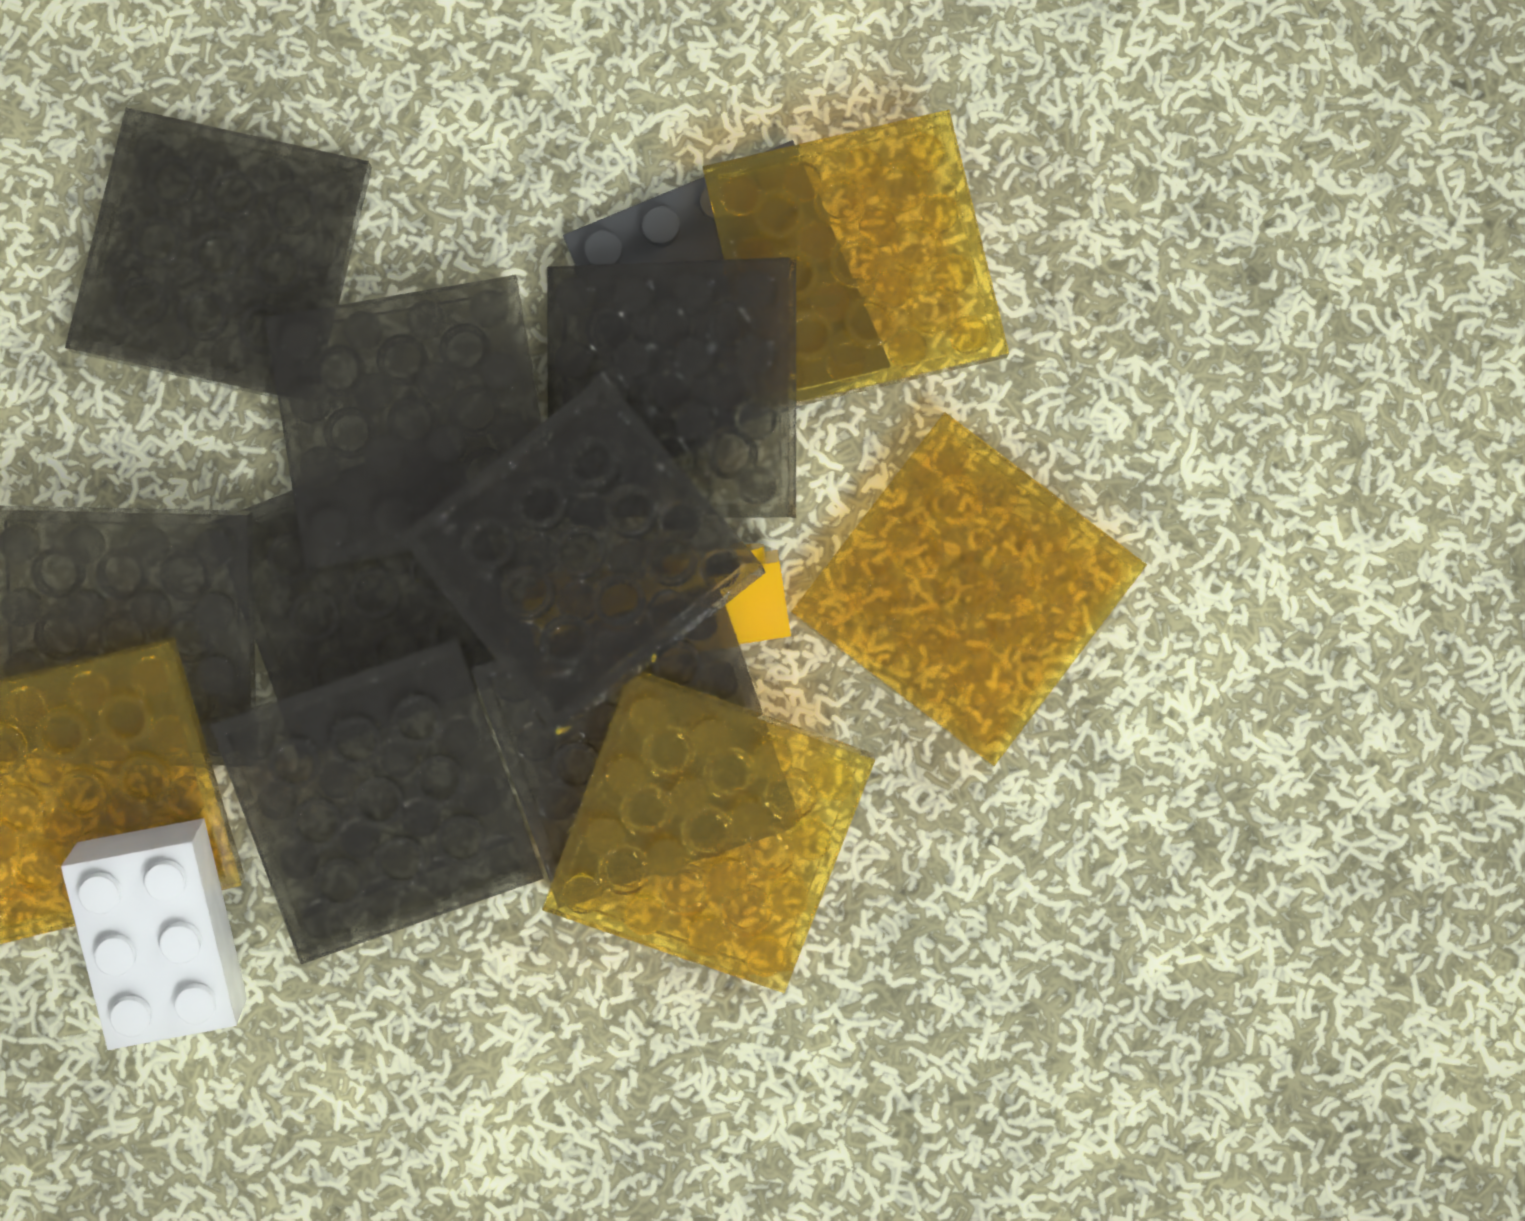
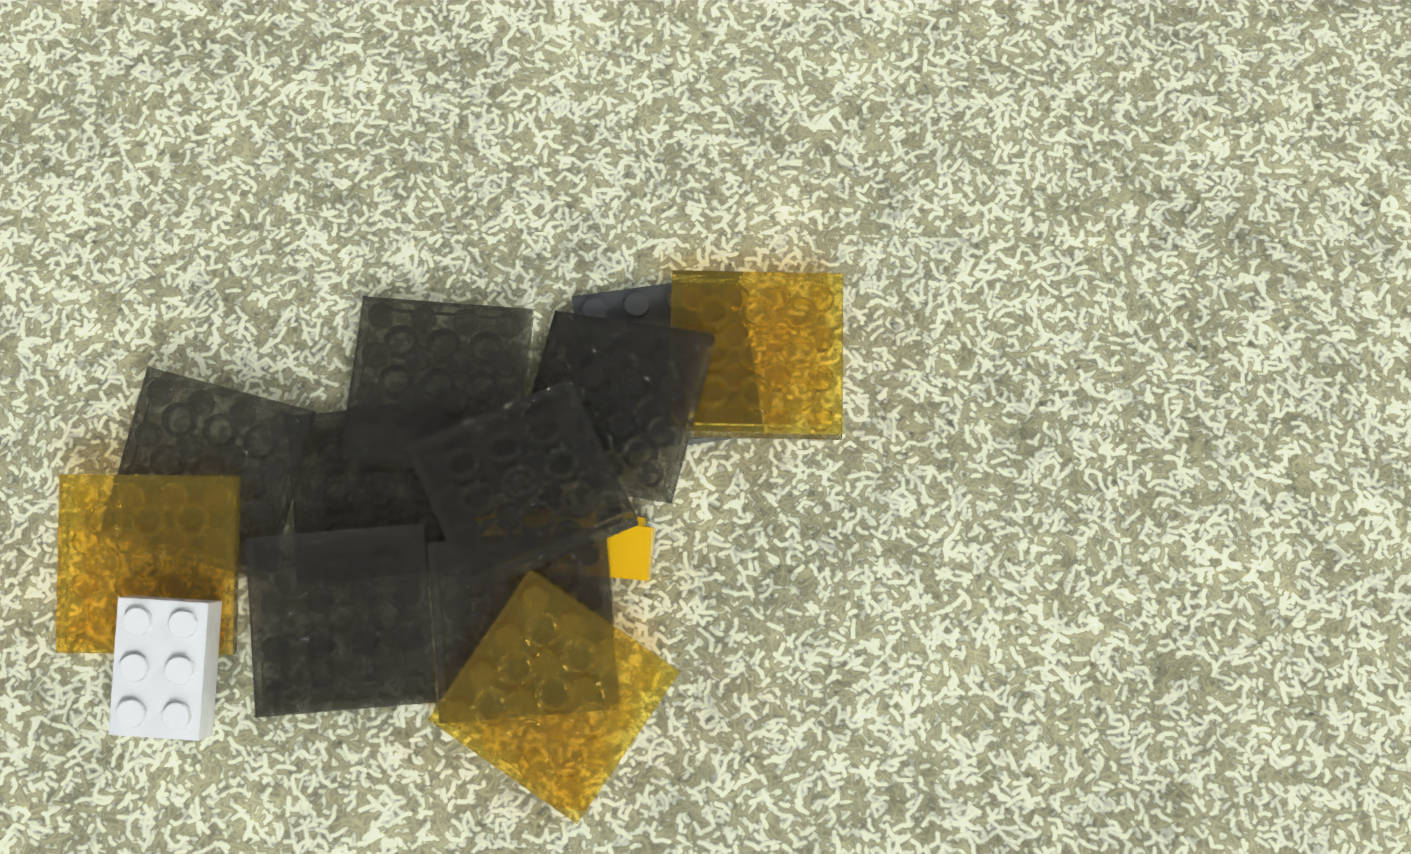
camera: 15 degrees right, 15 degrees down
(206, 242) = (342, 242): clear smoke plate -> none
(968, 589) = (777, 586): clear yellow plate -> none

